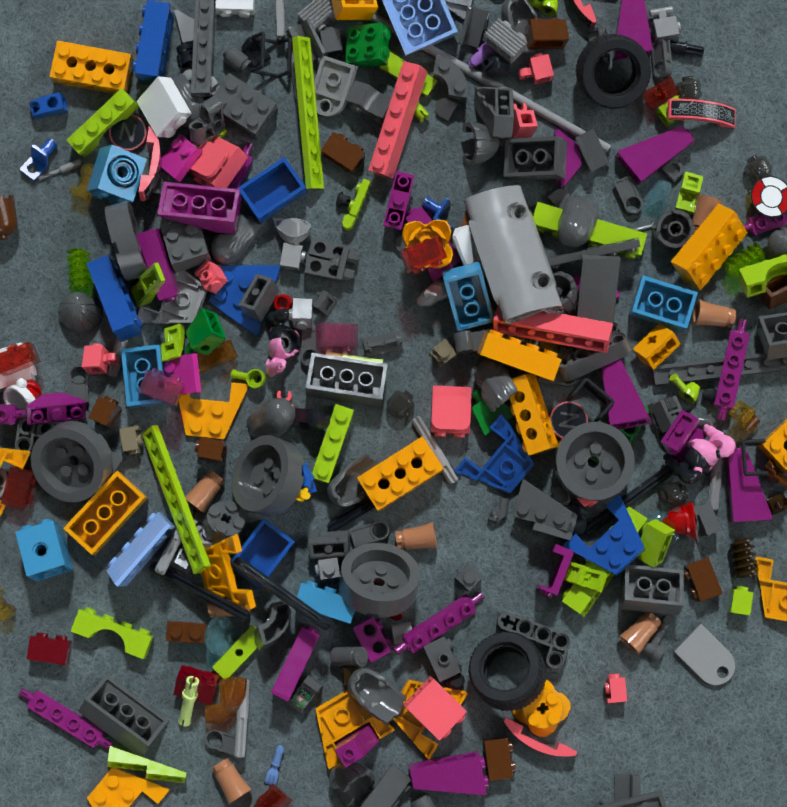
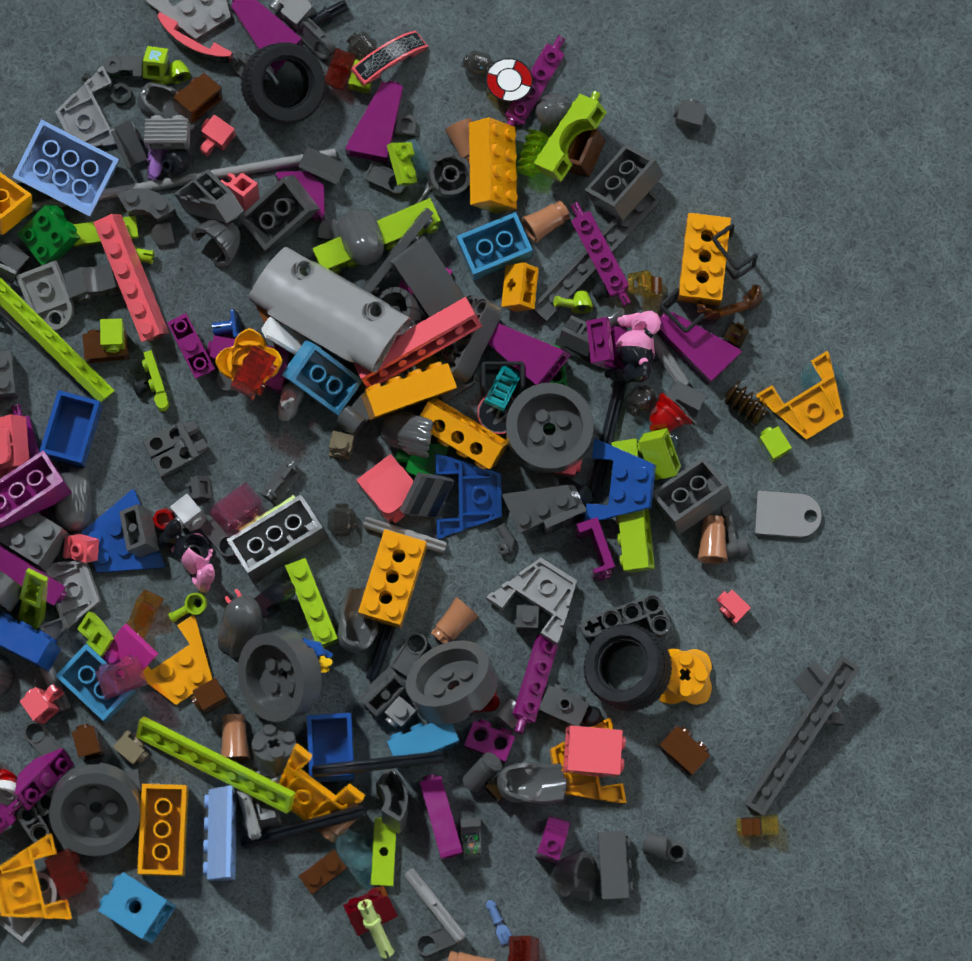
camera: 40 degrees left, 5 degrees down
(136, 641) = (230, 939): lime arch -> none
(204, 333) = (117, 601): green torso -> none
(231, 697) = (409, 892): clear orange brick -> none
(292, 229) = (117, 448): light grey piece -> none
(292, 256) = (137, 471): light grey brick -> none
(340, 717) = (520, 830): light orange wing -> none
(352, 149) = (112, 335): none -> lime brick
(451, 774) = (655, 797): magenta slope -> none
(471, 436) = (426, 495): none -> tile
(498, 567) = (544, 587): none -> light grey wing
(559, 750) = (677, 712): coral slope -> none
(585, 577) = (626, 532): lime slope -> none
(596, 403) = (507, 377): none -> teal slope
(647, 195) = (401, 163): none -> lime hinge
(688, 191) = (435, 134): lime slope -> none
(702, 579) = (726, 452): reddish brown brick -> none

